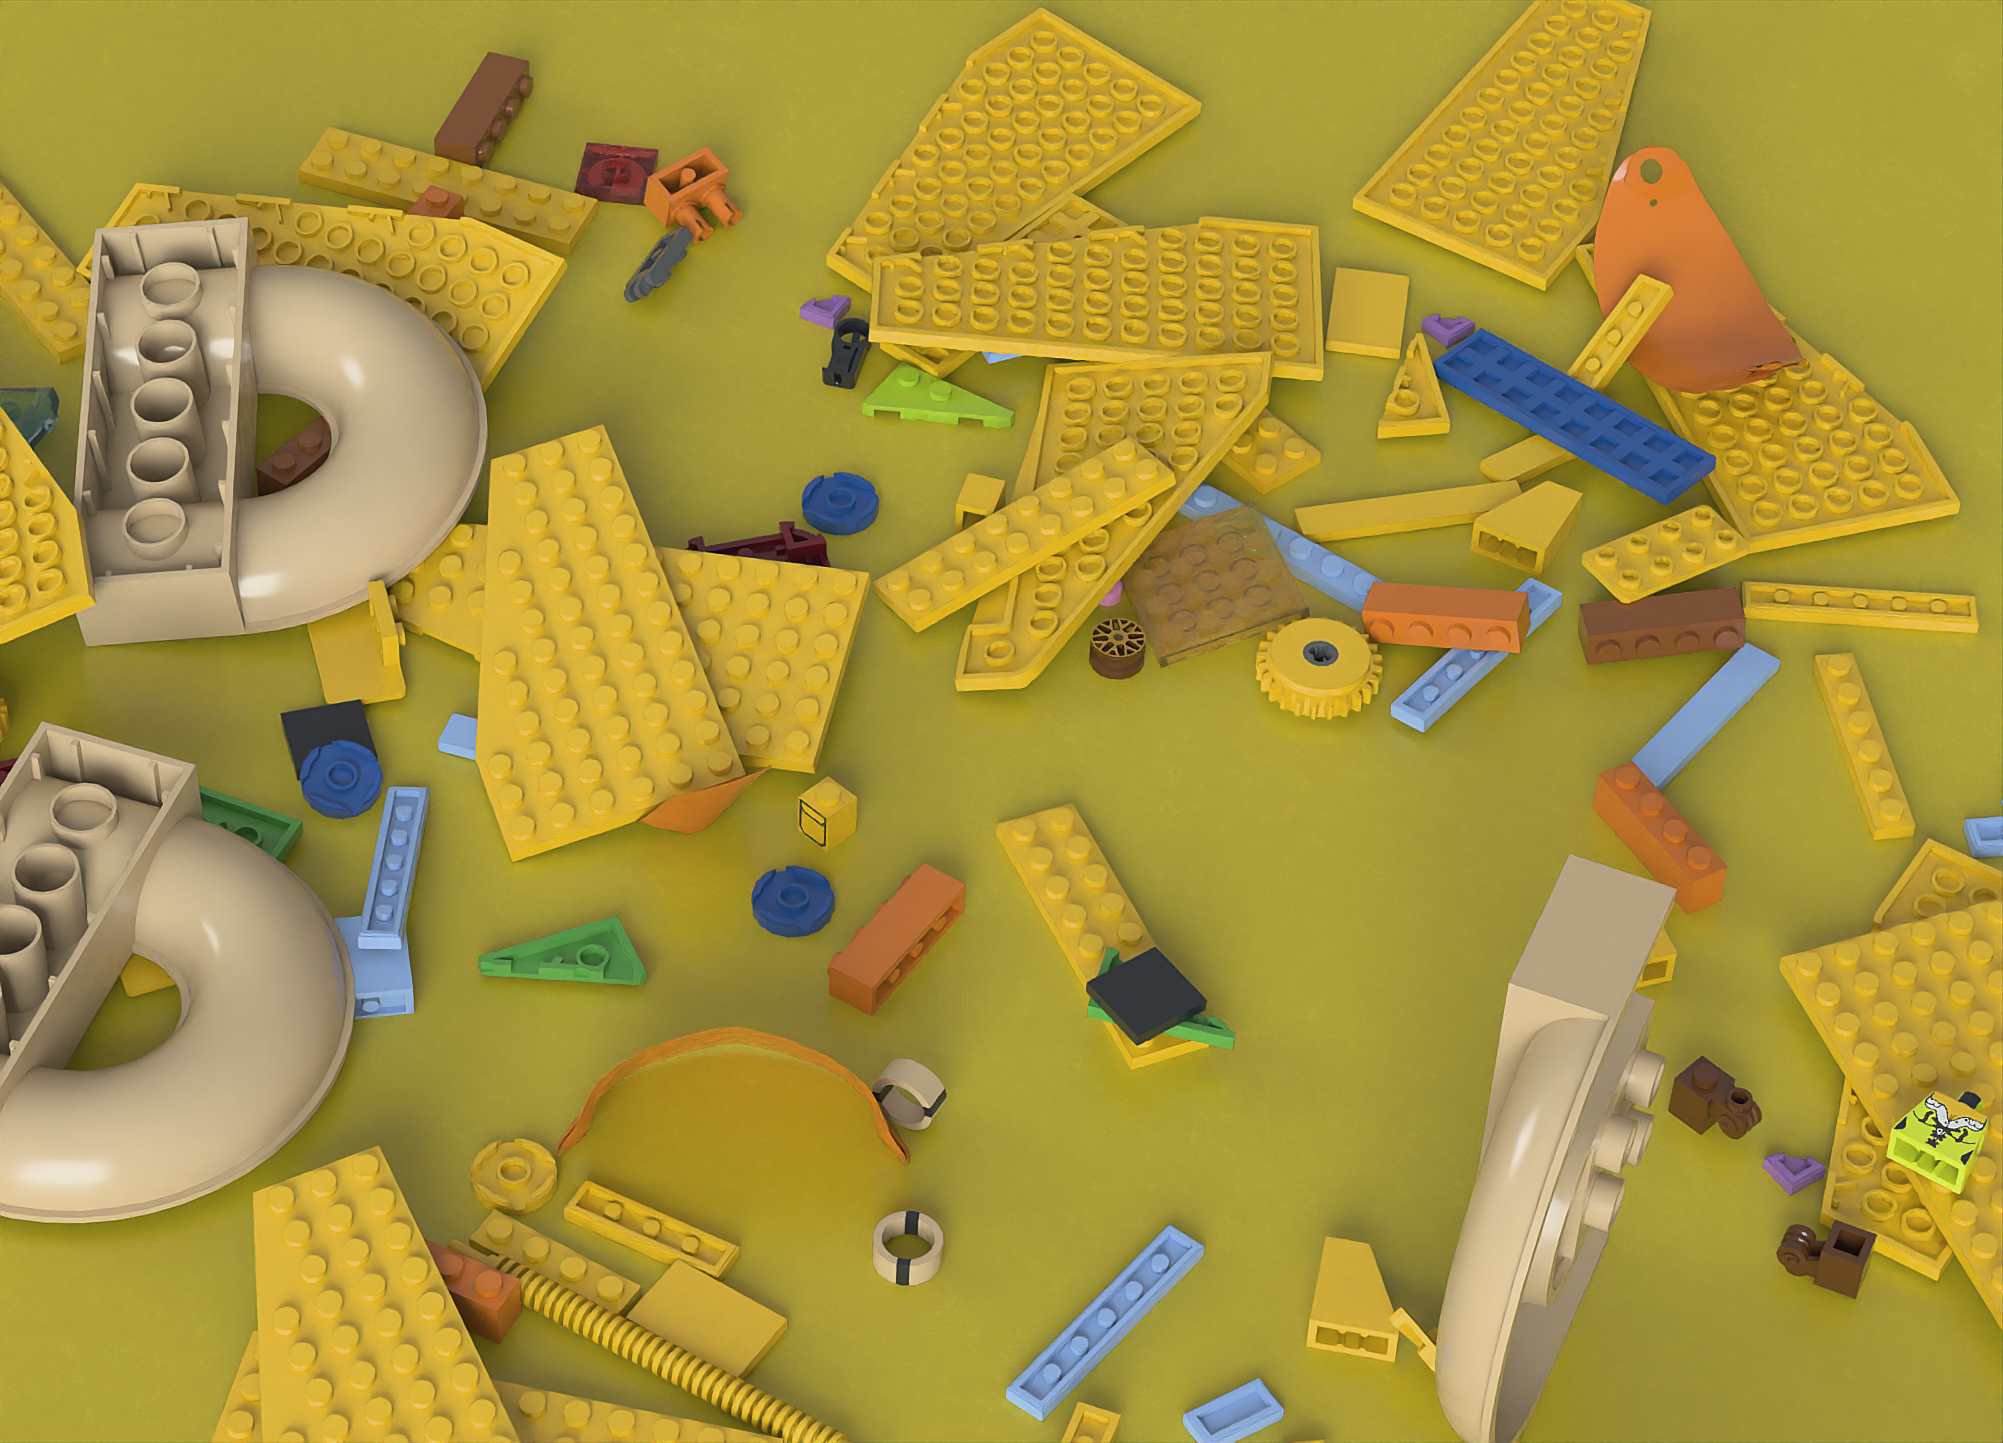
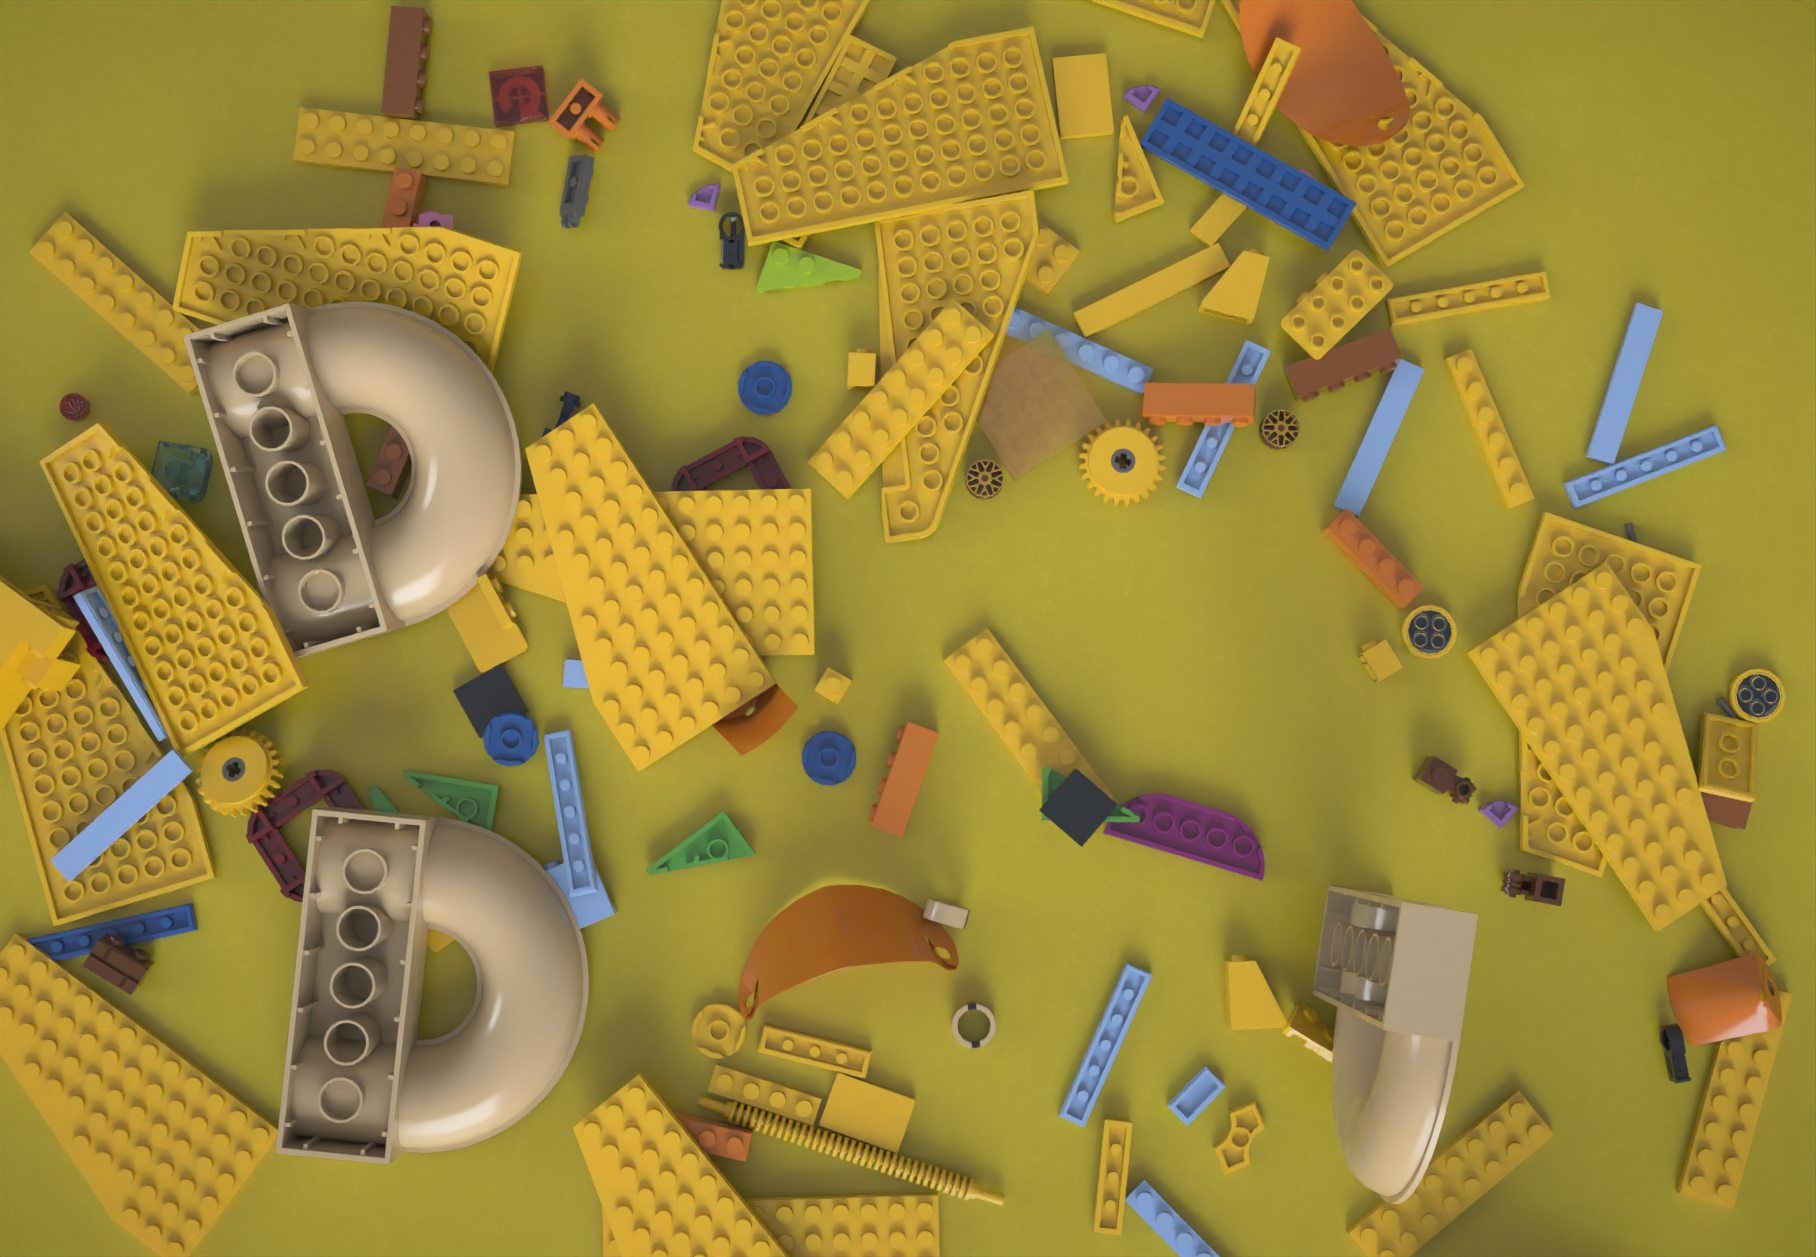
camera: 15 degrees left, 40 degrees up
(1308, 1091) = (1192, 833): none -> magenta plate
(1555, 682) = (1279, 429): none -> wheel
(1727, 943) = (1428, 632): none -> tile
(1941, 1138) = (1598, 797): neon yellow torso -> none

